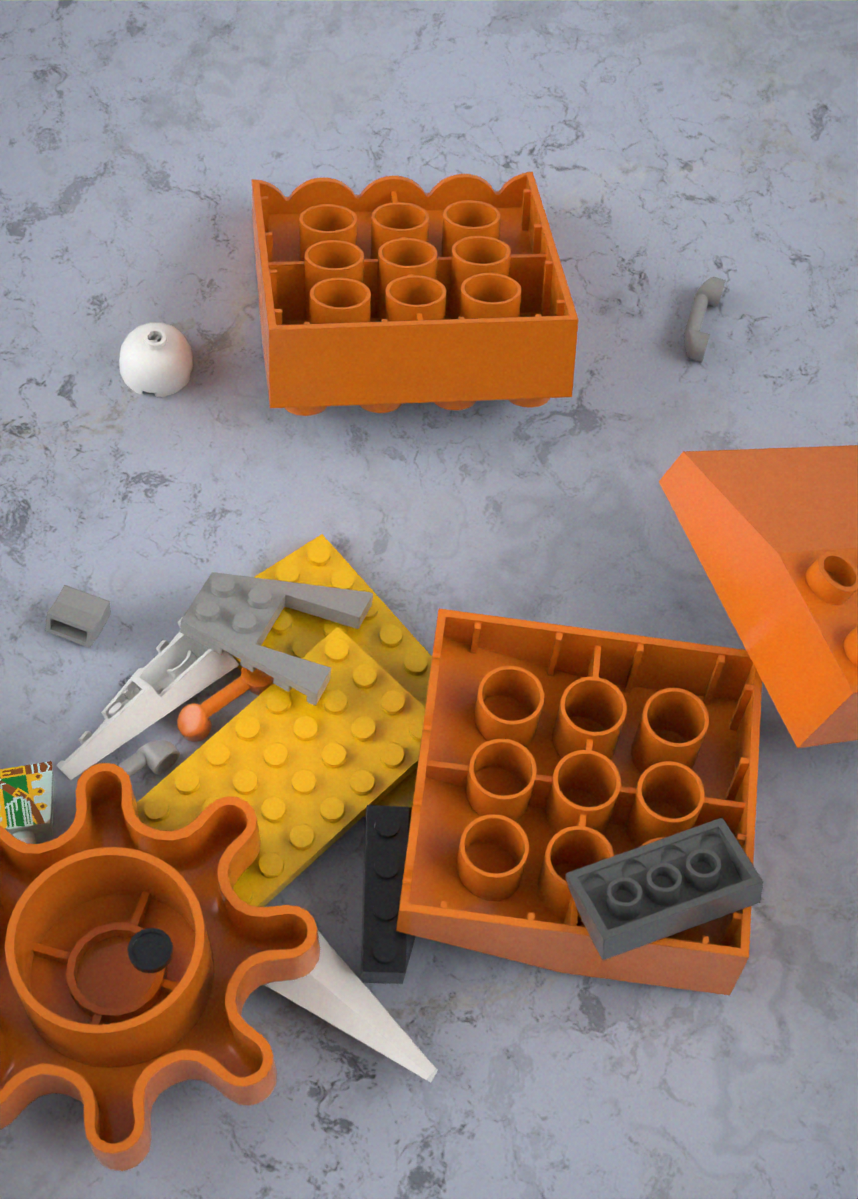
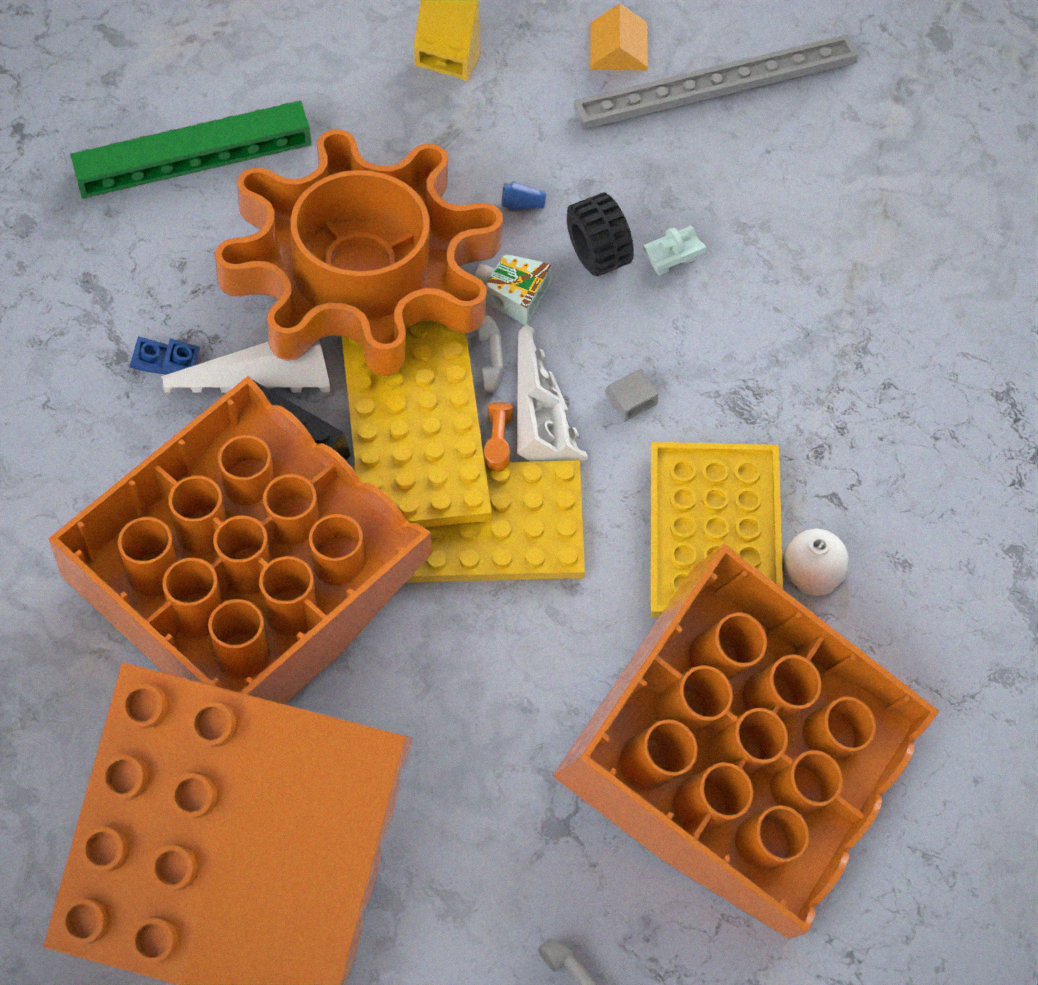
camera: 135 degrees right, 0 degrees up
(150, 950) = (338, 249): black piece -> none
(183, 456) = (709, 499): none -> yellow plate
(239, 612) = (547, 460): light grey wing -> none
(387, 1120) = (161, 357): none -> blue slope
(664, 888) = (128, 515): dark grey slope -> none

